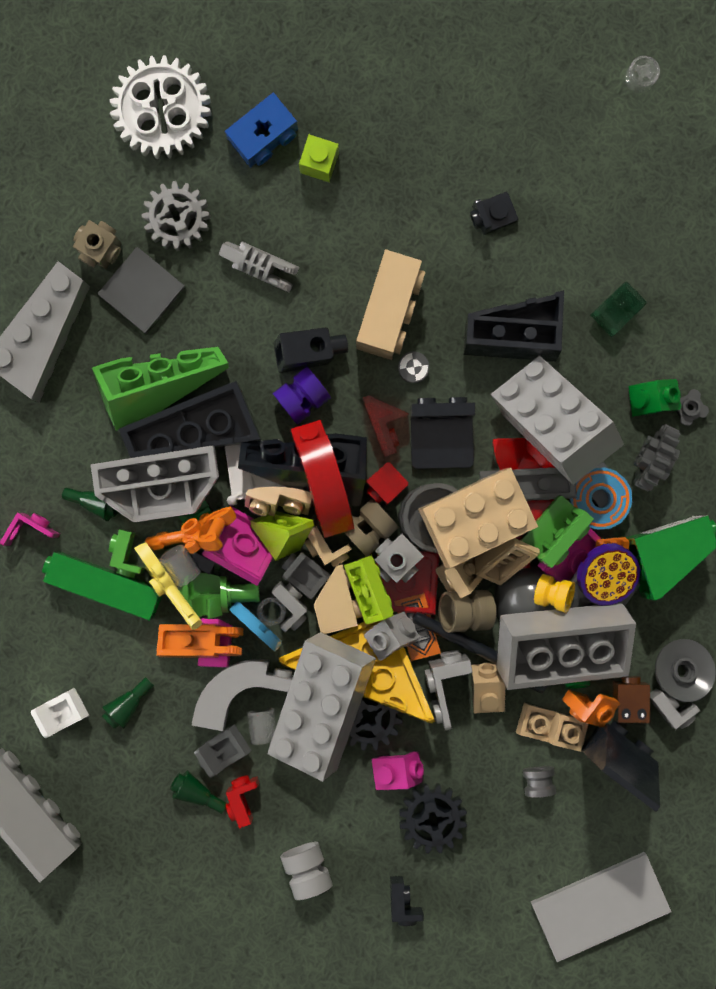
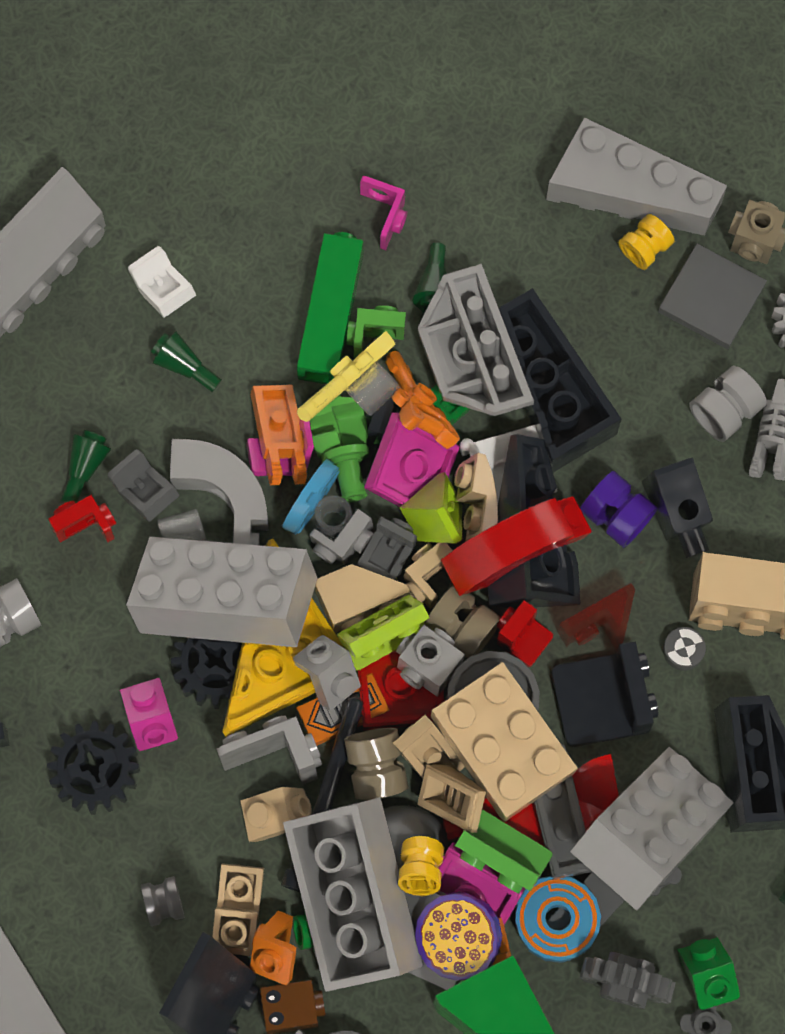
camera: 80 degrees right, 15 degrees down
(89, 332) = (646, 241): none -> yellow wheel
(149, 387) = (587, 310): bright green wedge -> none
(232, 296) = (733, 398): none -> light grey wheel

